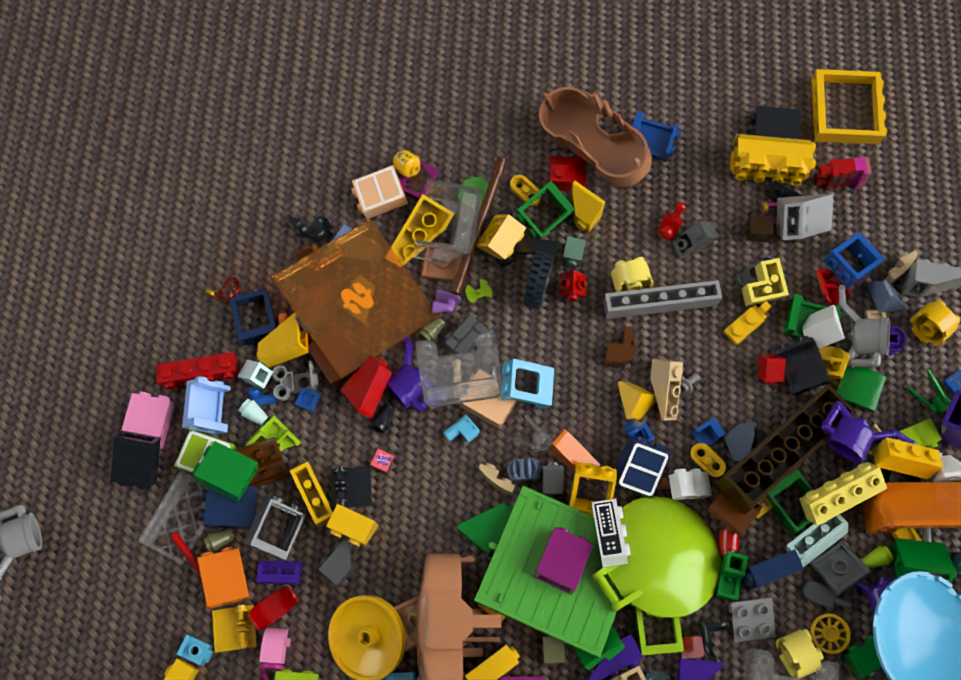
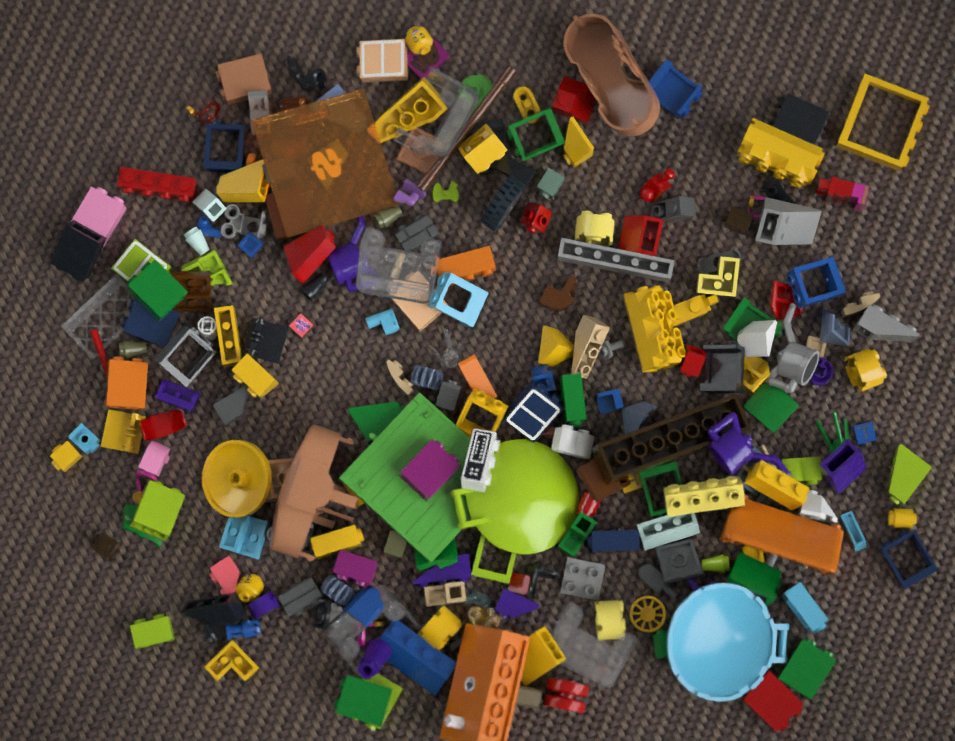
camera: 20 degrees right, 10 degrees up
(204, 406) = (154, 221): light blue panel -> none
(253, 249) = (243, 76): none -> nougat brick
(273, 264) = (258, 105): none -> light grey brick
(291, 497) = (209, 332): none -> white wheel
(526, 347) = (469, 264): none -> orange brick
(672, 434) = (572, 399): none -> green brick
(676, 267) = (641, 234): none -> red slope
(706, 461) = (600, 425): yellow plate -> none
(722, 351) = (650, 320): none -> yellow brick

